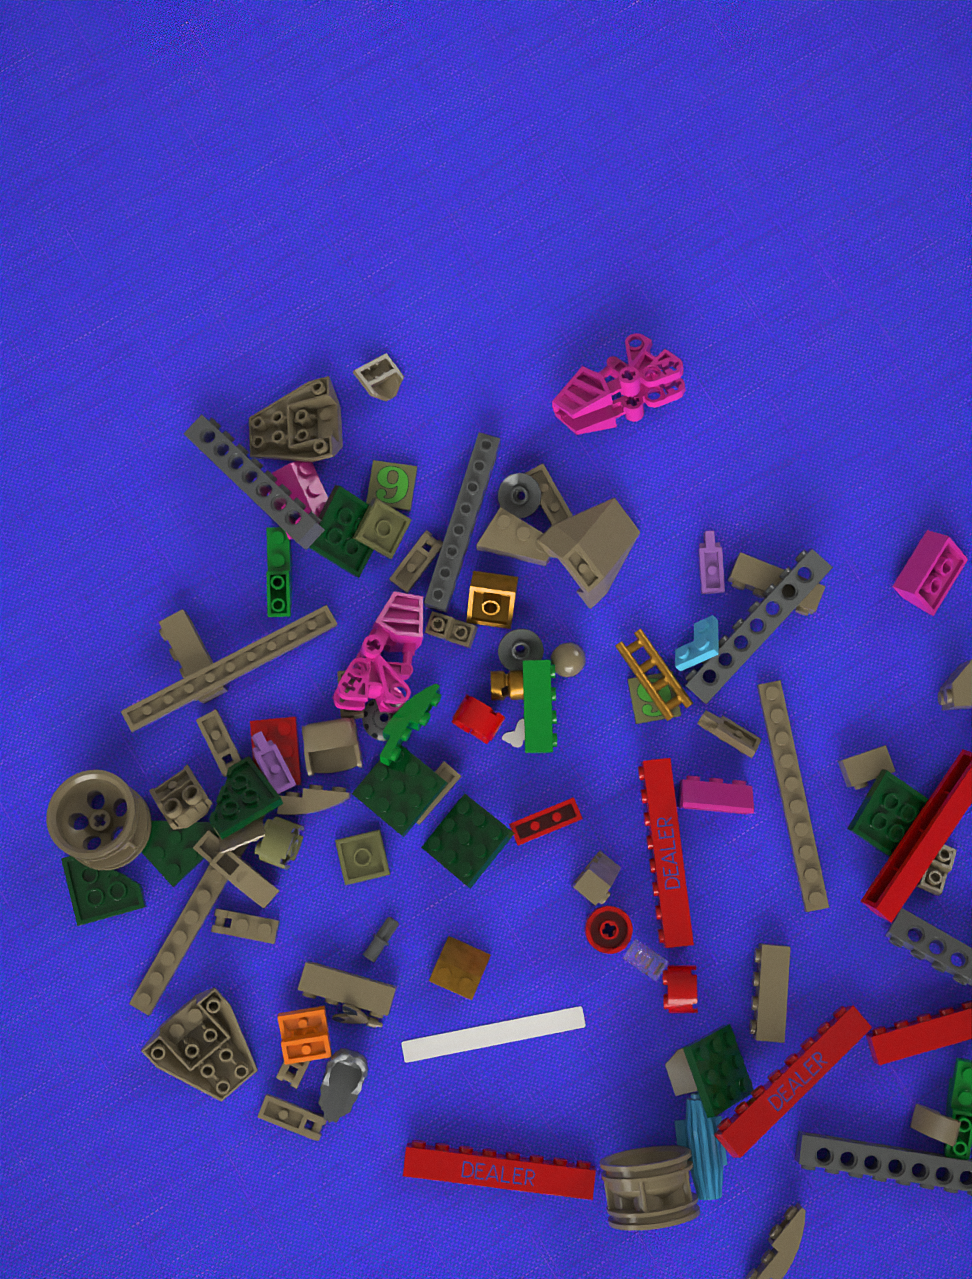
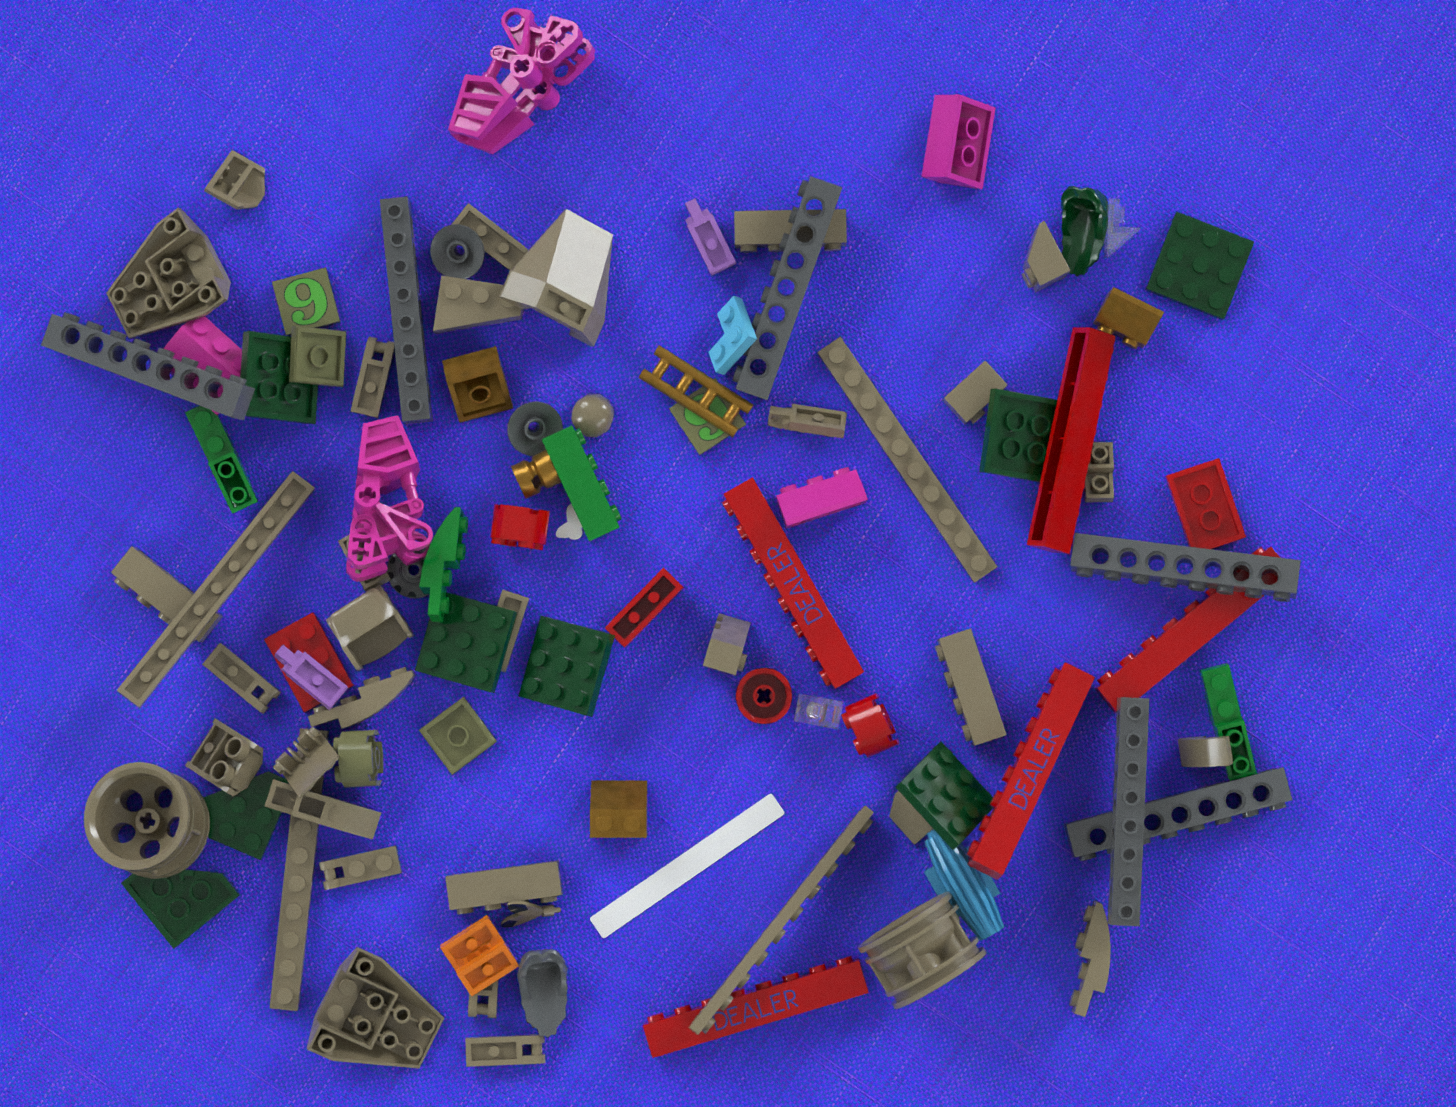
camera: 30 degrees left, 5 degrees up
(243, 798) = (296, 727): dark green plate -> none
(381, 939) = (518, 816): dark grey axle -> none
(451, 629) = (446, 438): dark tan slope -> none
(539, 1117) = (775, 930): none -> dark tan plate
(857, 1148) = (1128, 811): none -> dark grey brick

